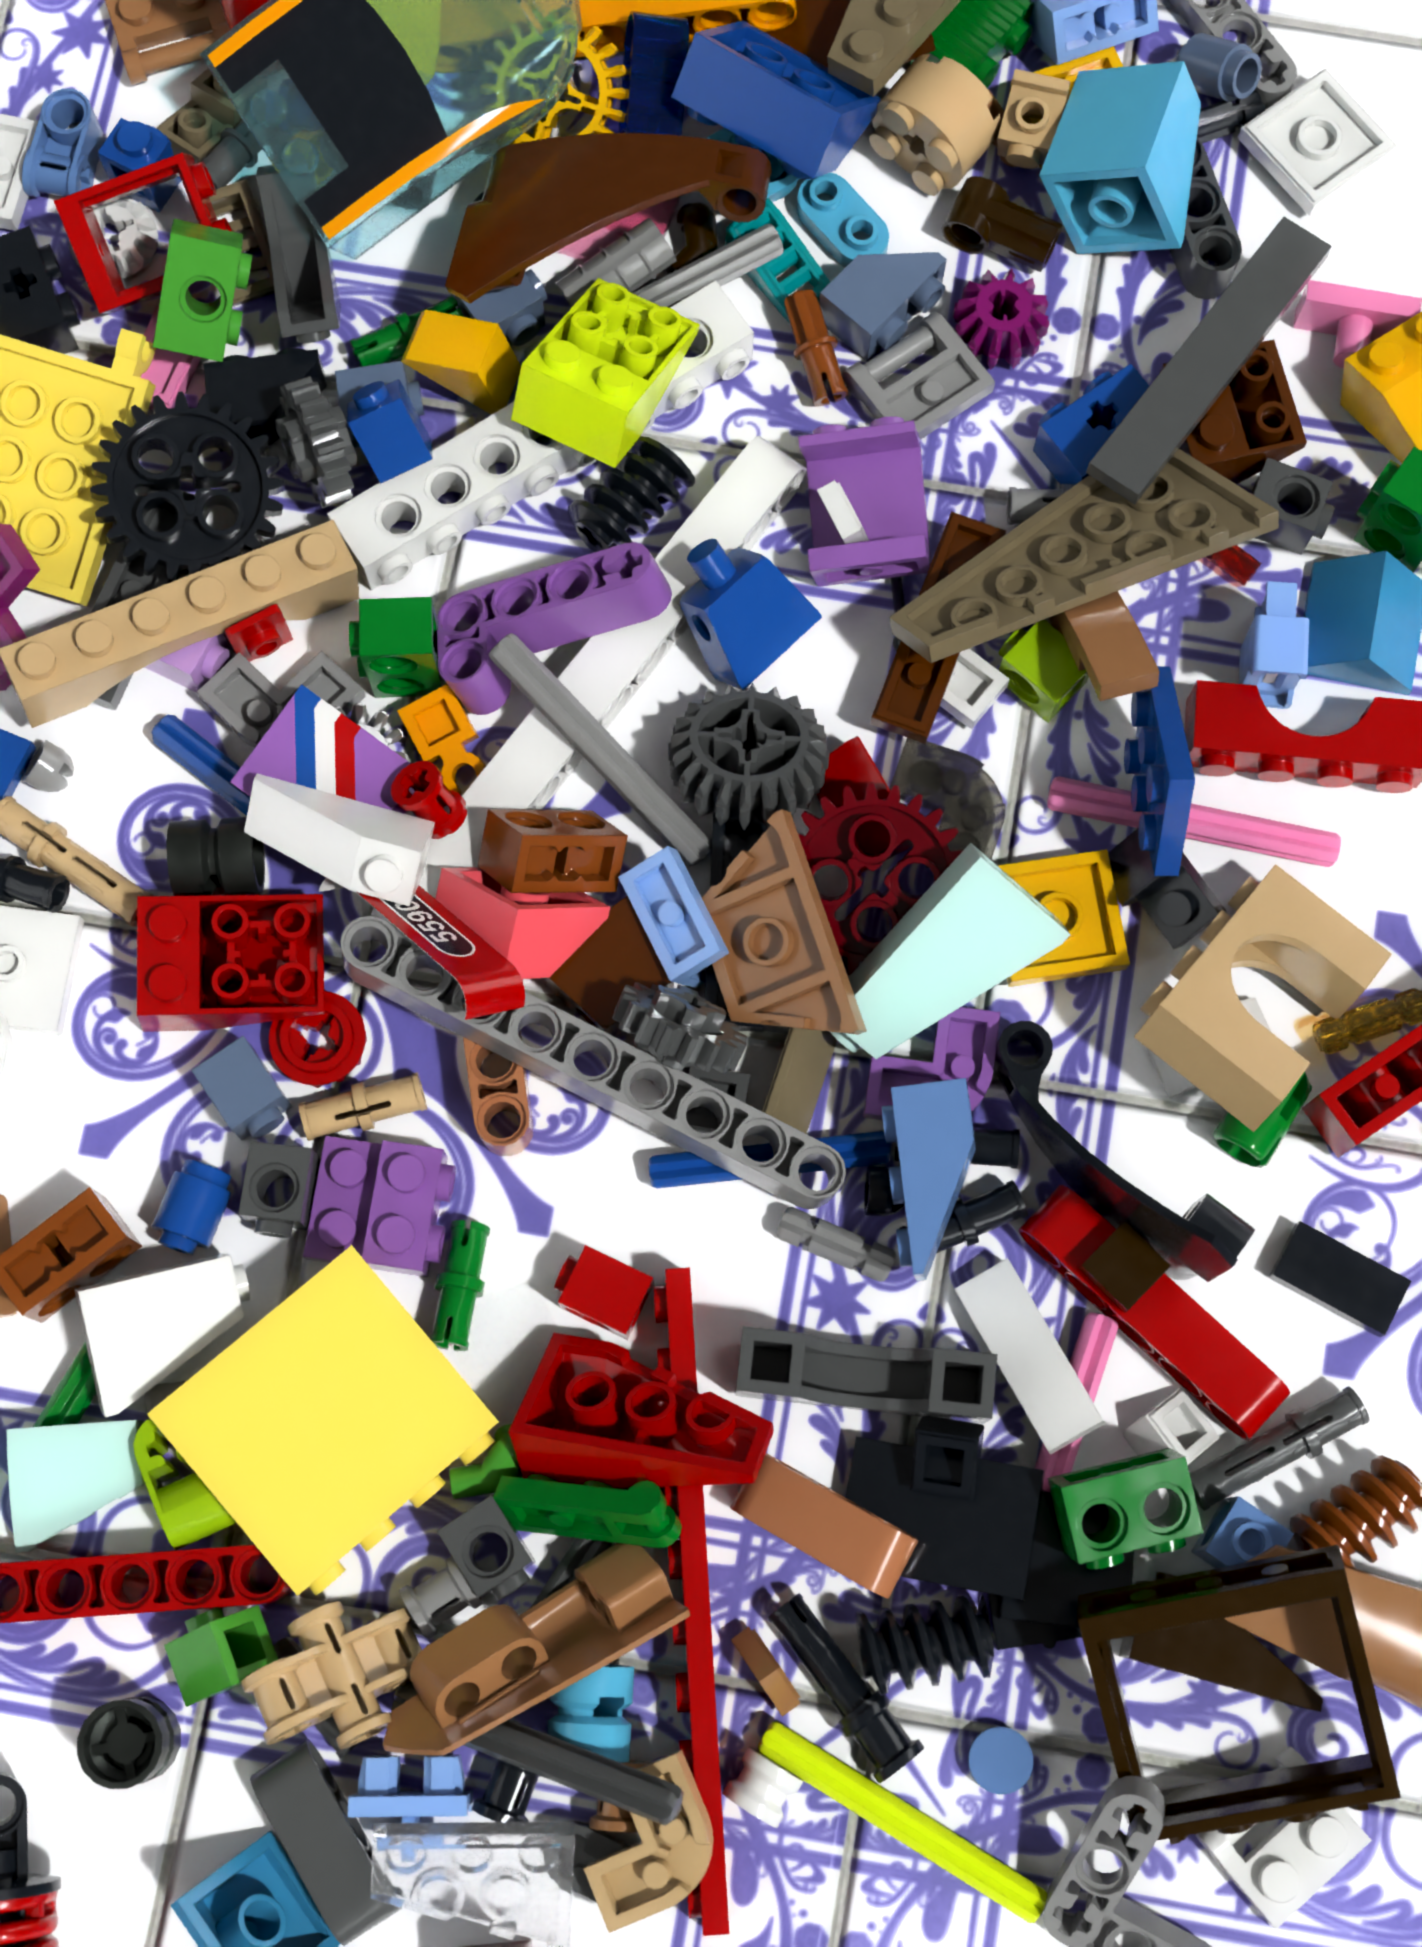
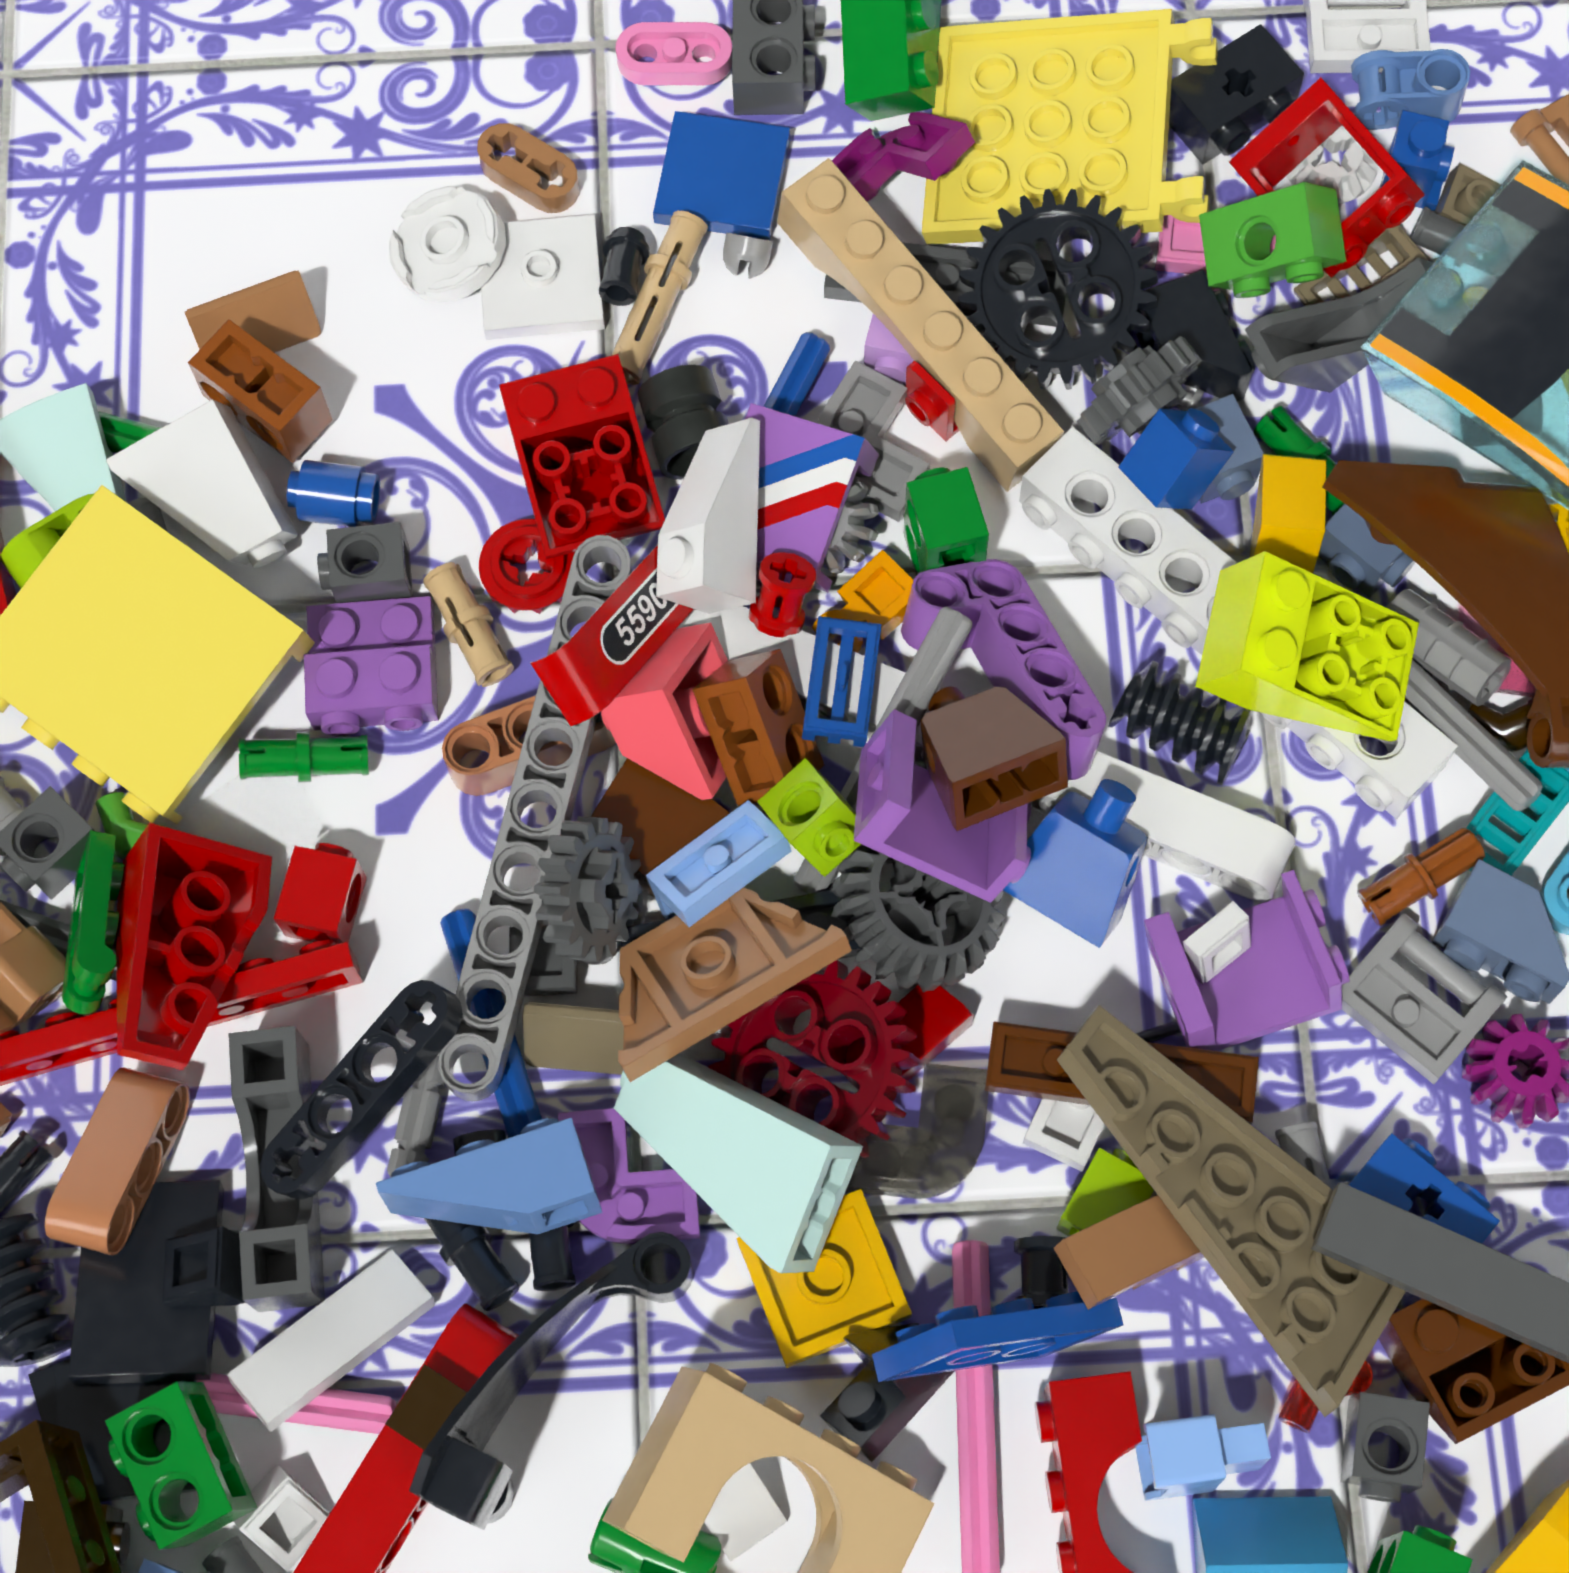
camera: 80 degrees right, 5 degrees down
(243, 1090) = (458, 508): sand blue brick -> none
(571, 785) = (835, 728): none -> blue tile
(638, 651) = (989, 753): none -> reddish brown torso
(638, 823) = (812, 817): none -> lime brick
(692, 709) = (907, 820): none -> medium lavender panel
(813, 1278) = (368, 1098): none -> black beam
(1093, 736) = (1041, 1269): none -> black bush

